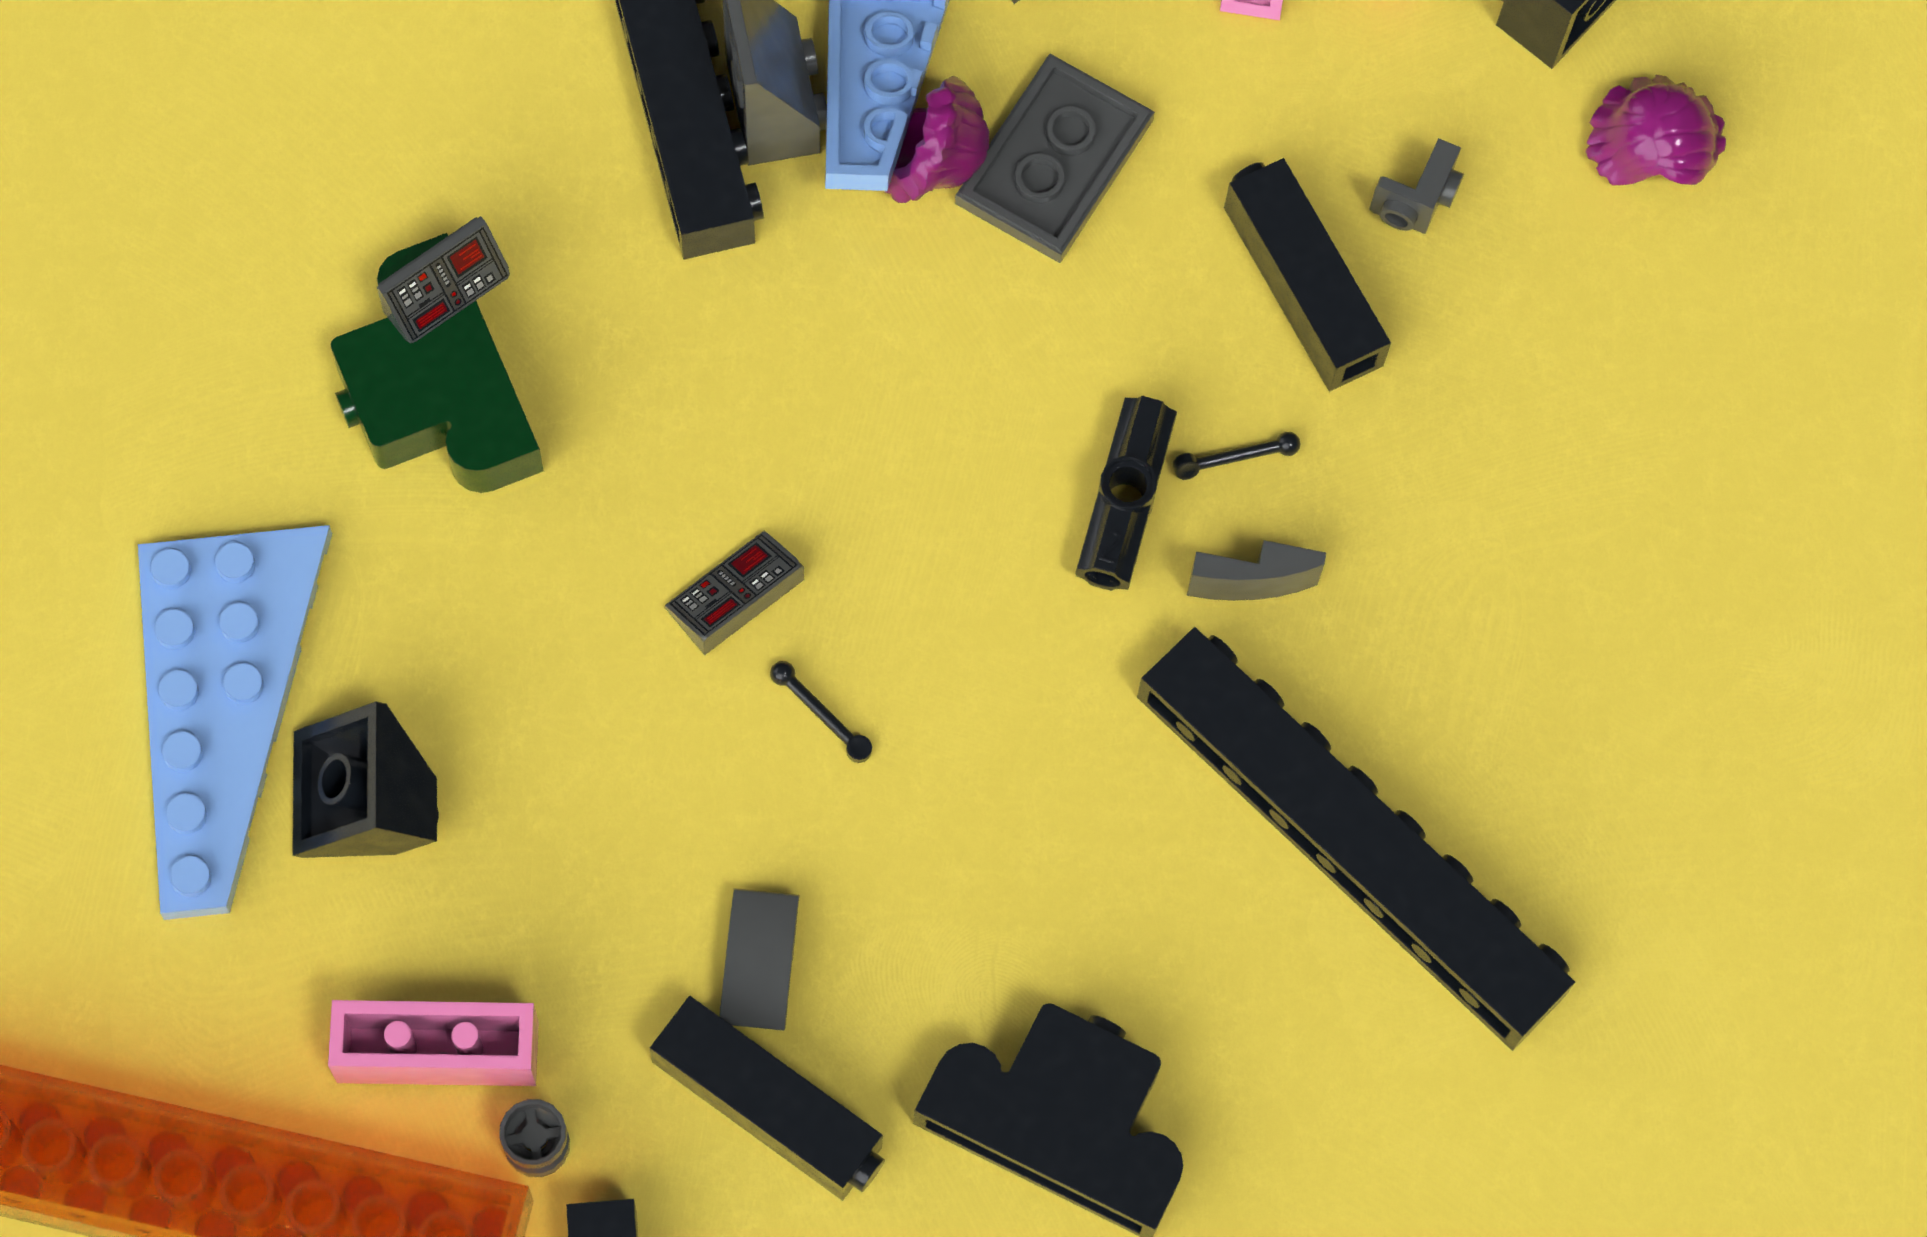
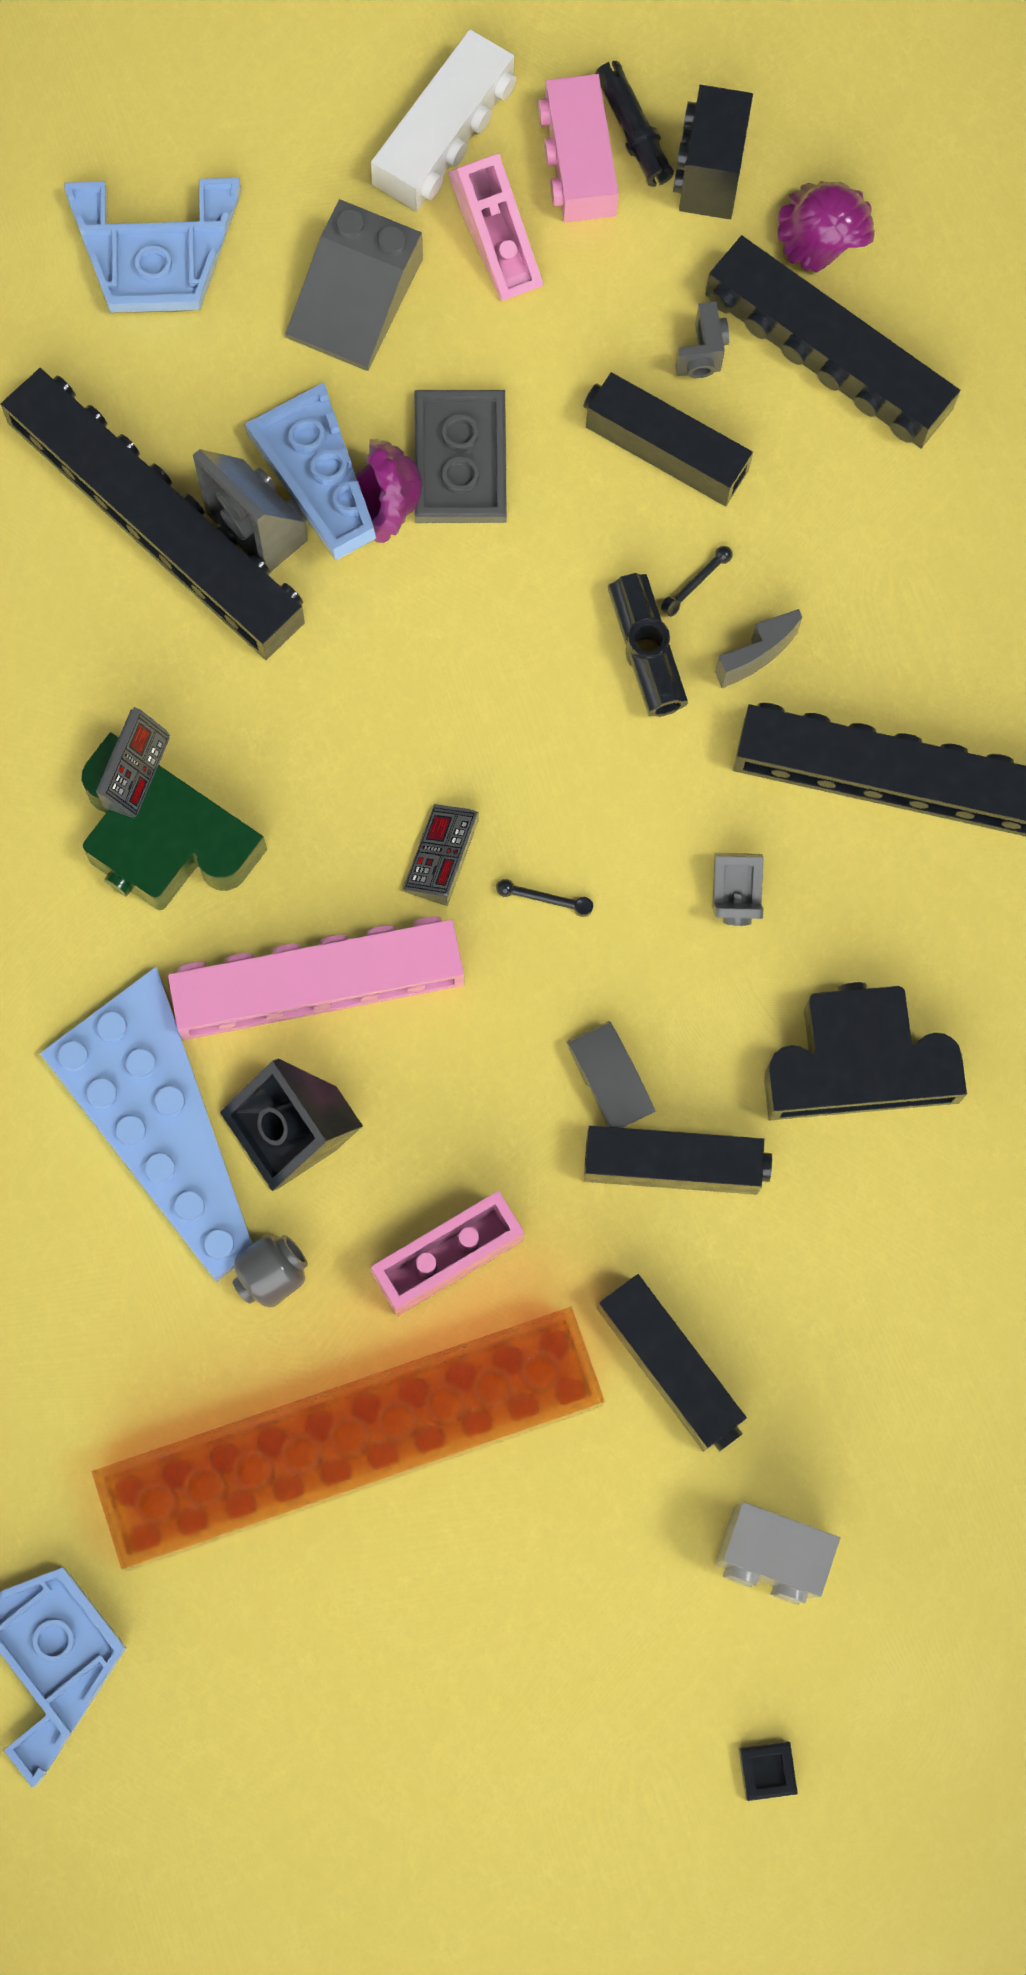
camera: 30 degrees left, 5 degrees up
(226, 940) = (269, 1270): none -> dark grey head
(497, 645) = (316, 978): none -> bright pink brick
(531, 1125) = (552, 1268): dark grey wheel -> none
(1048, 832) = (738, 888): none -> bracket
(1572, 274) = (831, 342): none -> black brick

